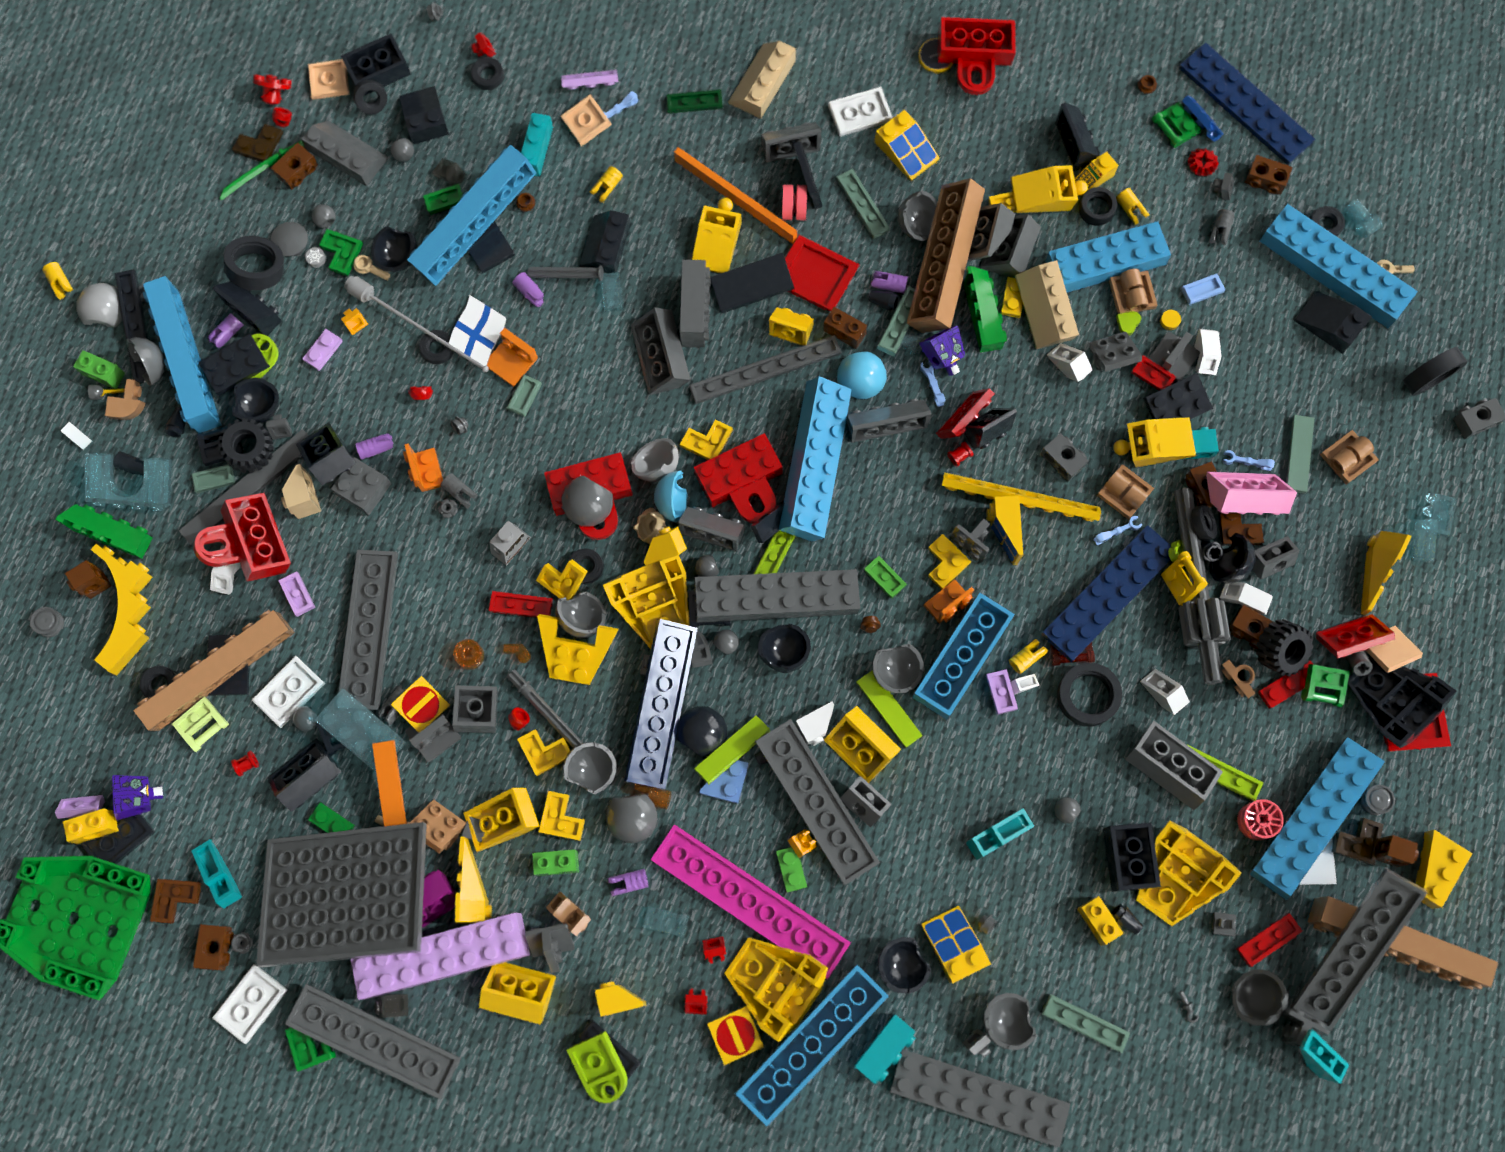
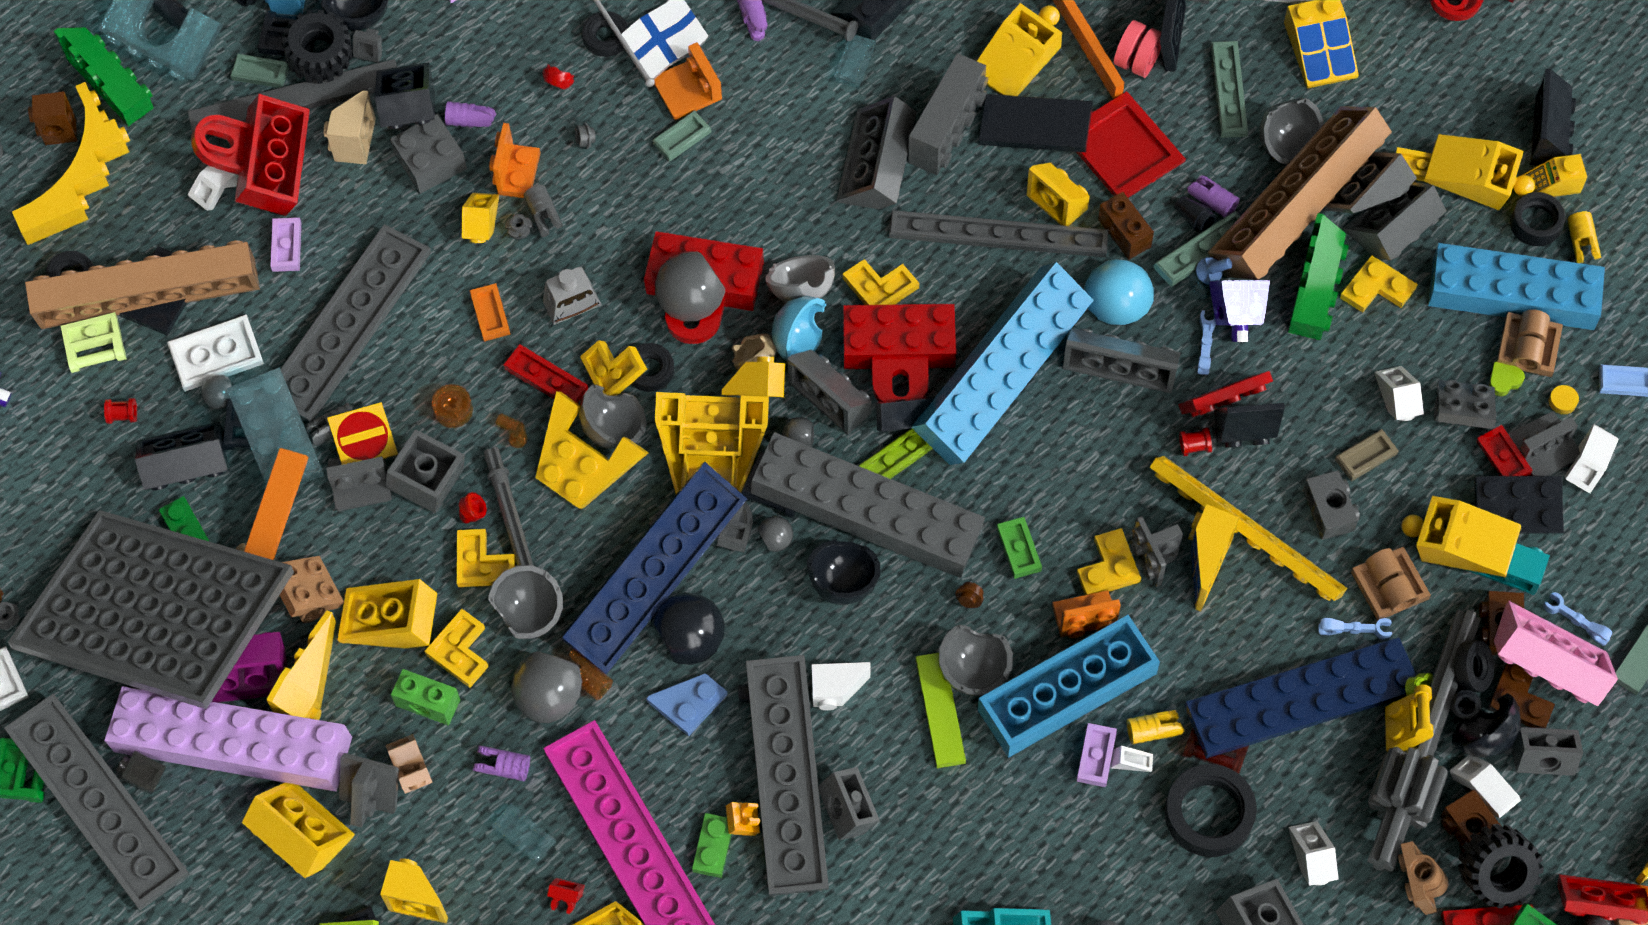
camera: 25 degrees right, 10 degrees down
(216, 874) = (18, 523): teal slope -> none
(418, 514) = (479, 217): none -> yellow slope
(459, 577) = (490, 312): none -> orange tile
(475, 823) = (352, 620): dark grey tile -> none
(732, 750) = (710, 665): lime tile -> none
(862, 744) = (882, 734): yellow slope -> none
(914, 334) = (1211, 269): none -> medium blue plate
(1047, 305) = (1402, 308): tan slope -> none
(1068, 412) = (1366, 455): none -> dark tan tile

